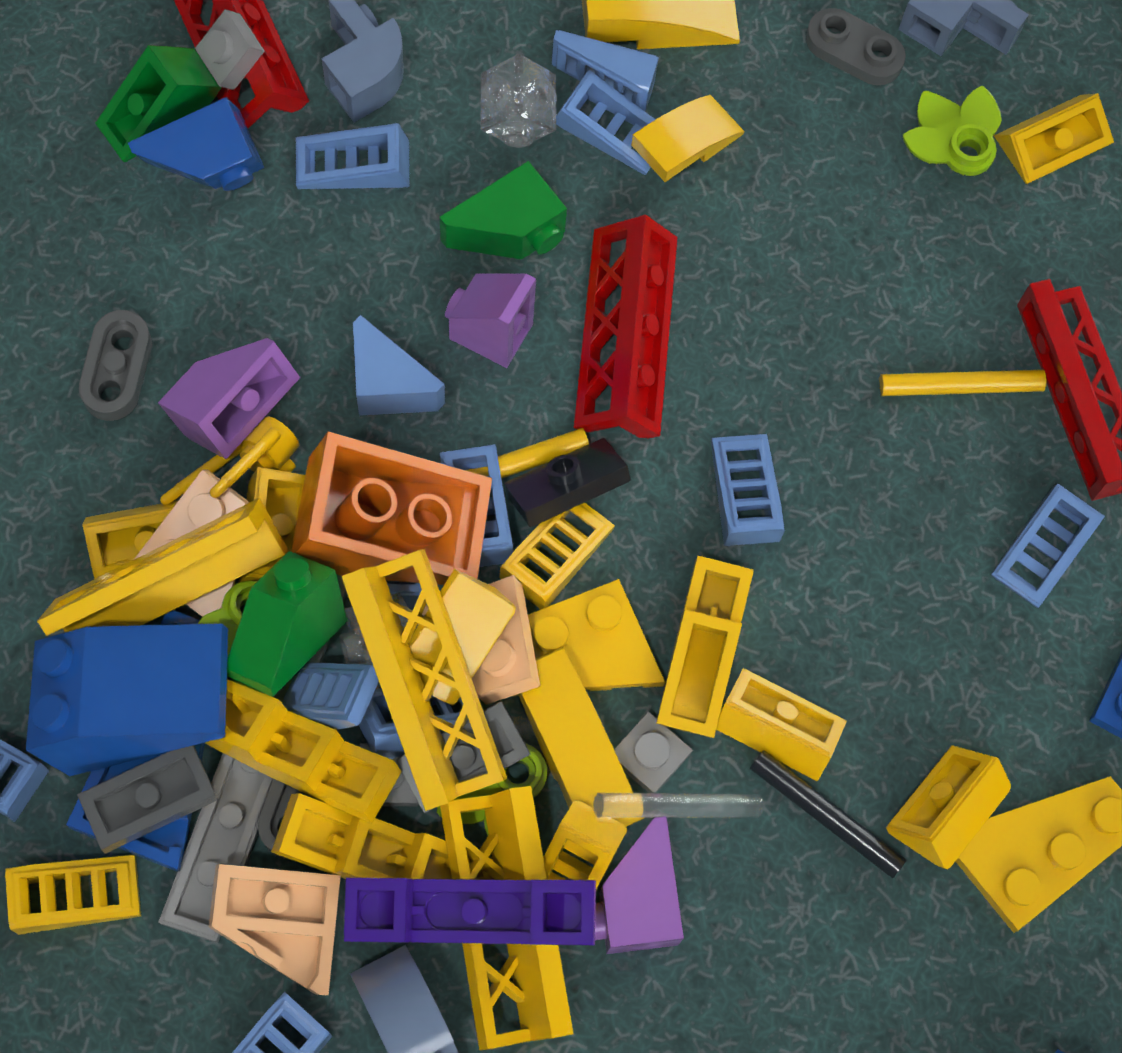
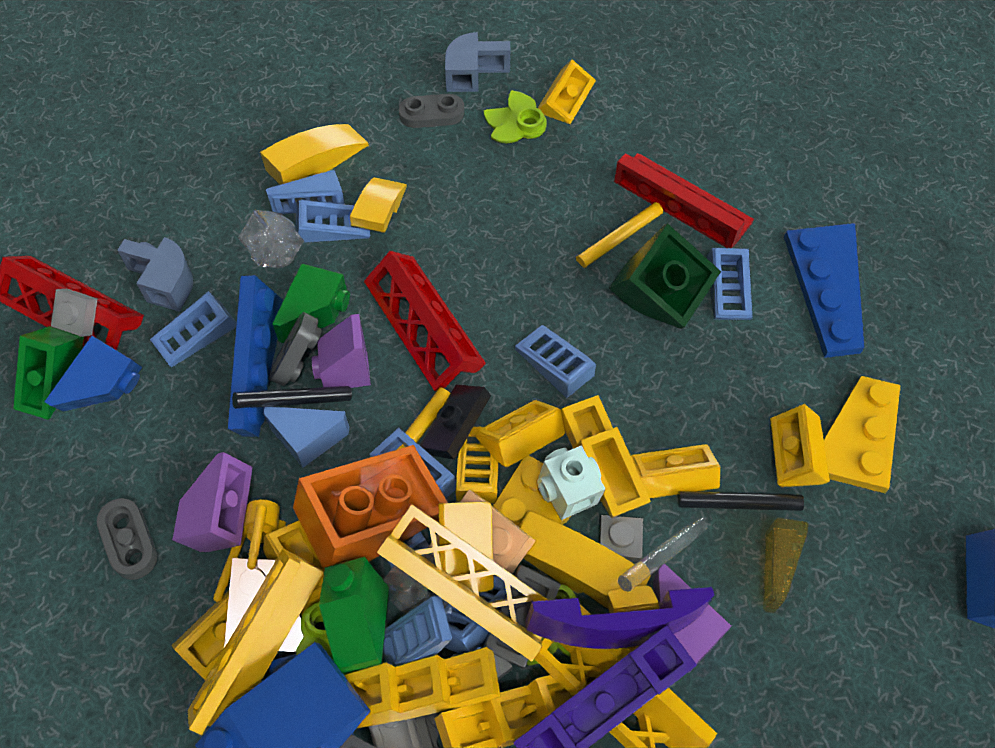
camera: 30 degrees left, 10 degrees down
(393, 239) = (253, 351): none -> blue wing
(400, 324) = (291, 397): none -> black bar
(428, 275) = (288, 362): none -> dark grey plate
(487, 795) = (564, 623): none -> dark purple slope
(620, 662) = (570, 481): none -> light aqua brick
(634, 550) = (522, 432): none -> yellow slope
(825, 903) = (782, 552): none -> clear yellow slope
(963, 483) = (666, 278): none -> dark green slope

